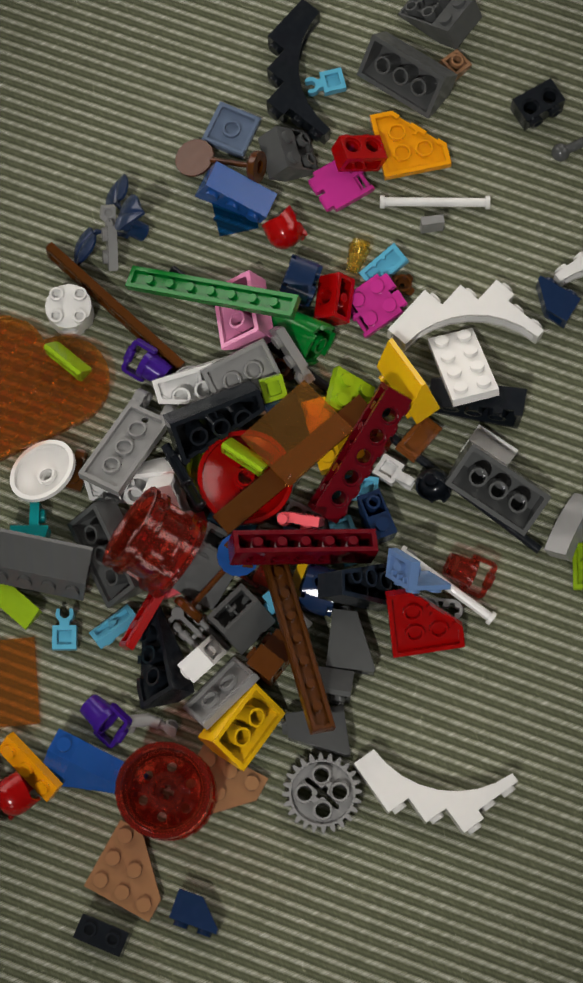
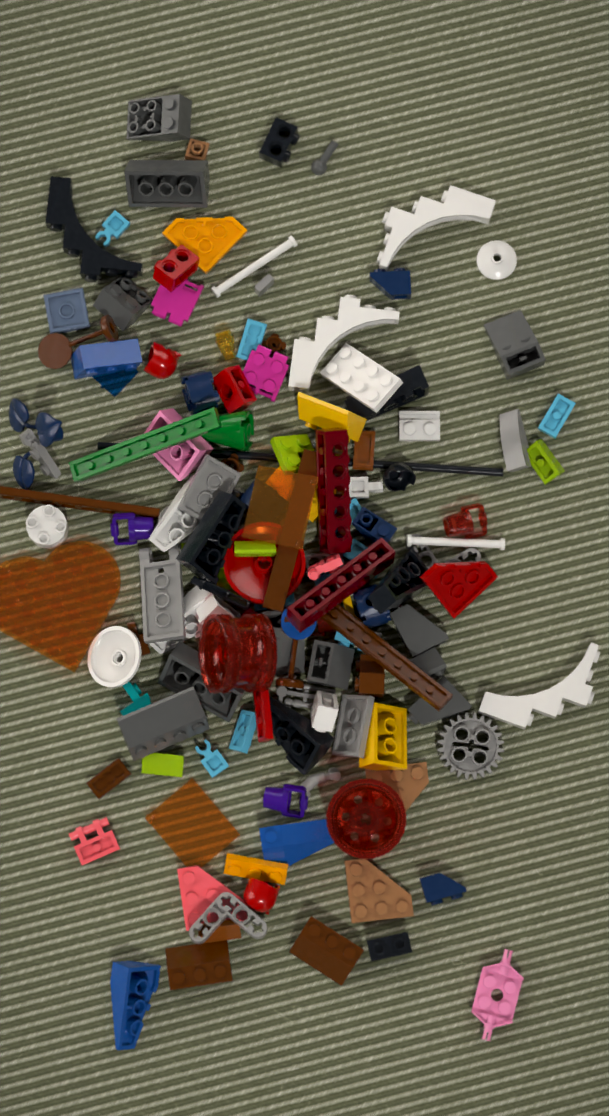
camera: 35 degrees left, 5 degrees up
(40, 895) = (326, 950): none -> reddish brown slope
(67, 360) = (74, 564): lime slope -> none
(272, 388) = (238, 485): lime plate -> none
(292, 357) = (234, 451): light grey hinge -> none
(407, 573) = (430, 553): medium blue bracket -> none
(497, 488) = (445, 449): dark grey slope -> none

